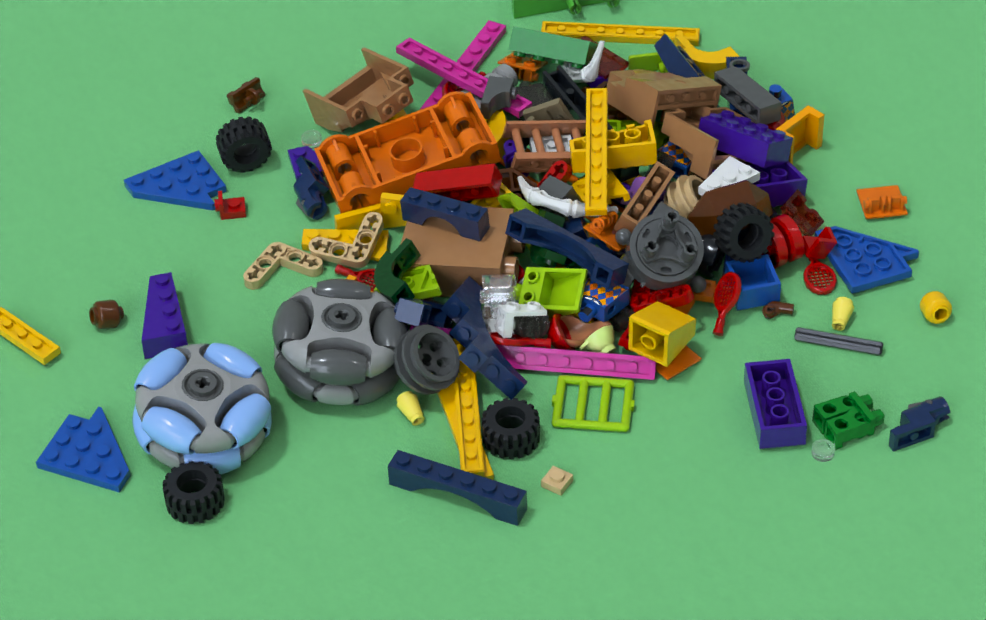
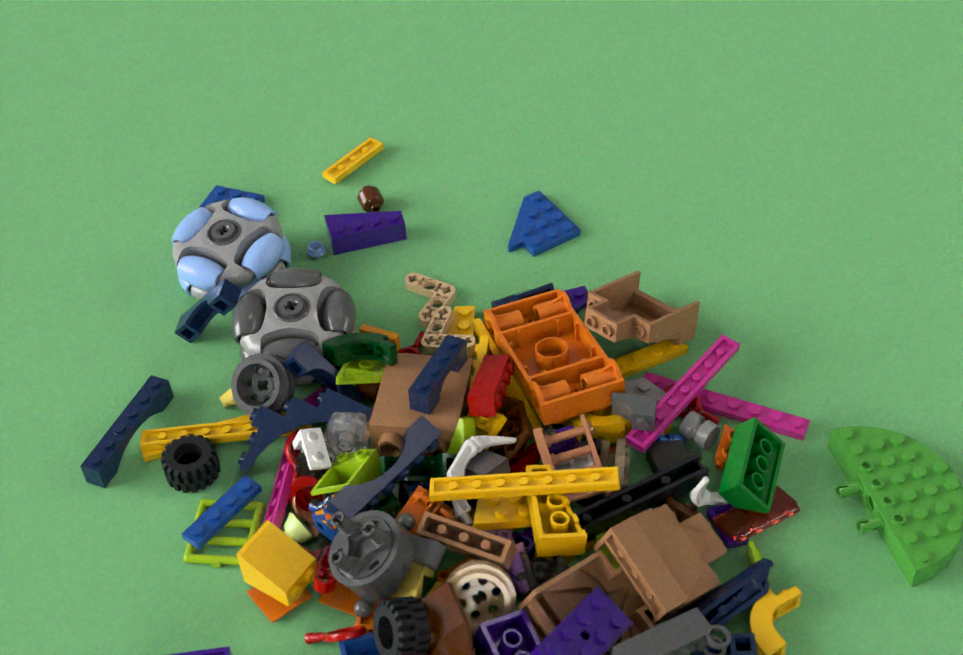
camera: 90 degrees right, 0 degrees up
(195, 478) = (156, 268): black tyre -> none
(230, 207) = (506, 256): red bracket -> none
(246, 95) = (659, 250): reddish brown hips -> none
(255, 140) = (572, 247): black tyre -> none
(299, 445) = (218, 300): none -> dark blue arch
(557, 480) = (130, 506): tan plate -> none
(575, 399) = (221, 512): none -> blue plate
(620, 33) = (814, 547): yellow tile -> none
(727, 173) = (497, 618): white wing -> none

